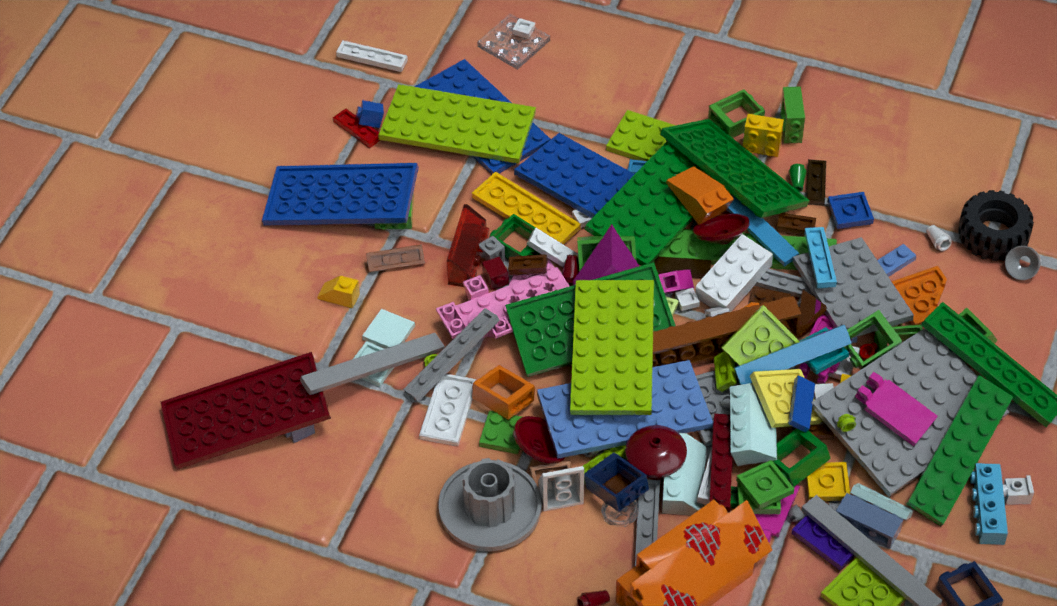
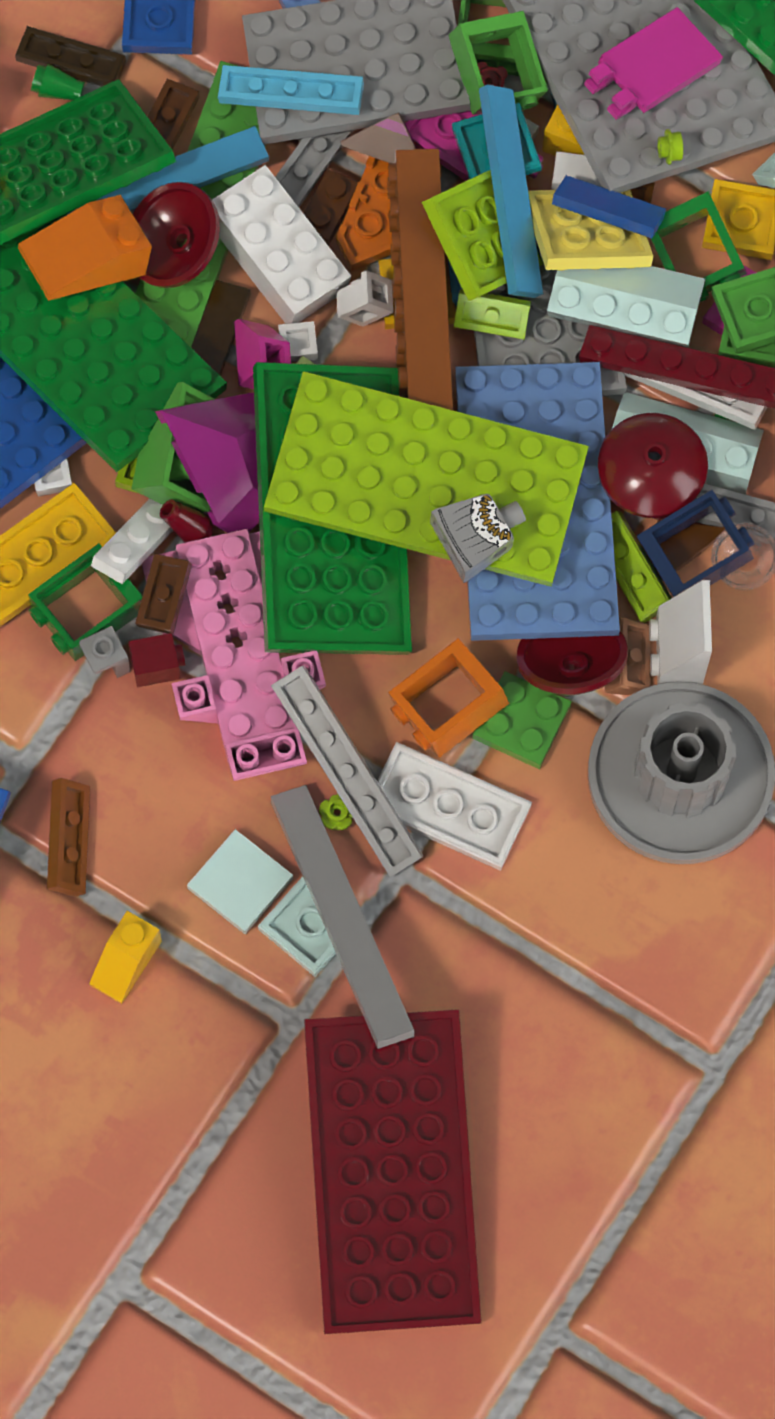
camera: 80 degrees left, 20 degrees up
(465, 250) = (86, 699): clear red slope -> none
(581, 363) = (476, 532): none -> light grey torso

